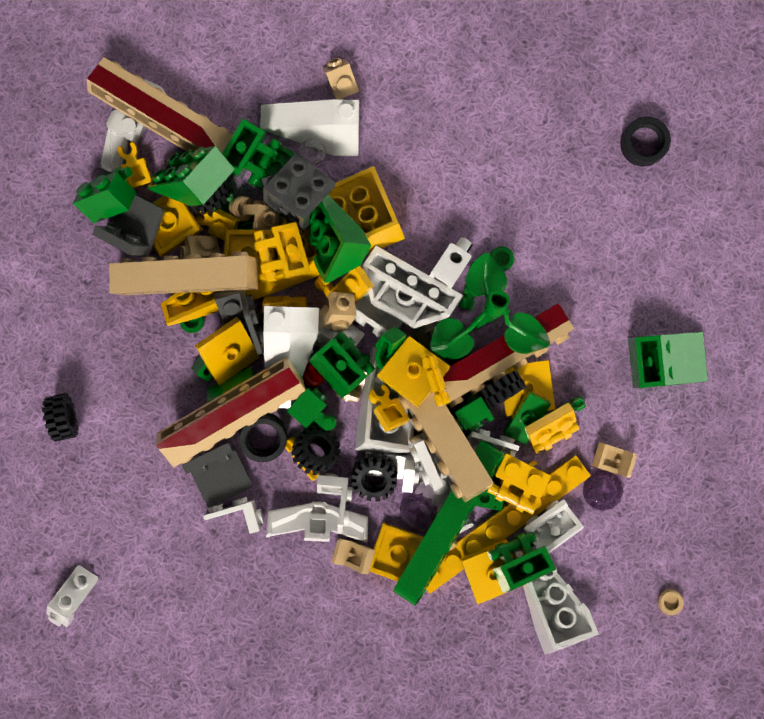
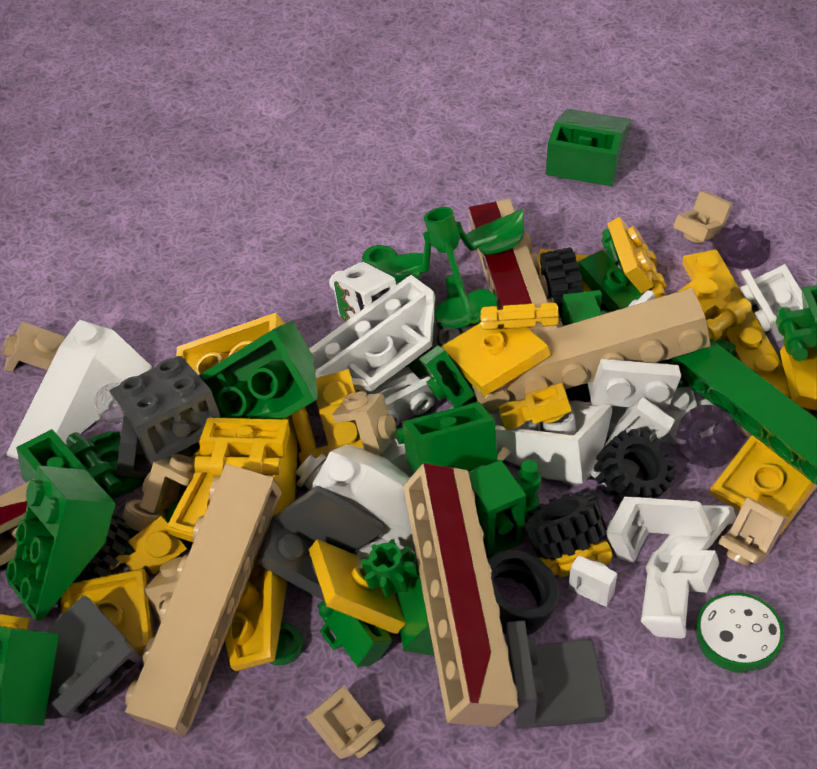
camera: 65 degrees left, 40 degrees down
(150, 377) = (345, 725): none -> tan bracket
(226, 366) = (389, 568): none -> green gear
(253, 516) = (633, 652): white bracket -> none
(289, 563) = (739, 632): none -> white tile
(290, 476) = (592, 580): none -> white plate
(307, 291) = (309, 470): none -> white plate
(664, 138) = (311, 109): black tyre -> none

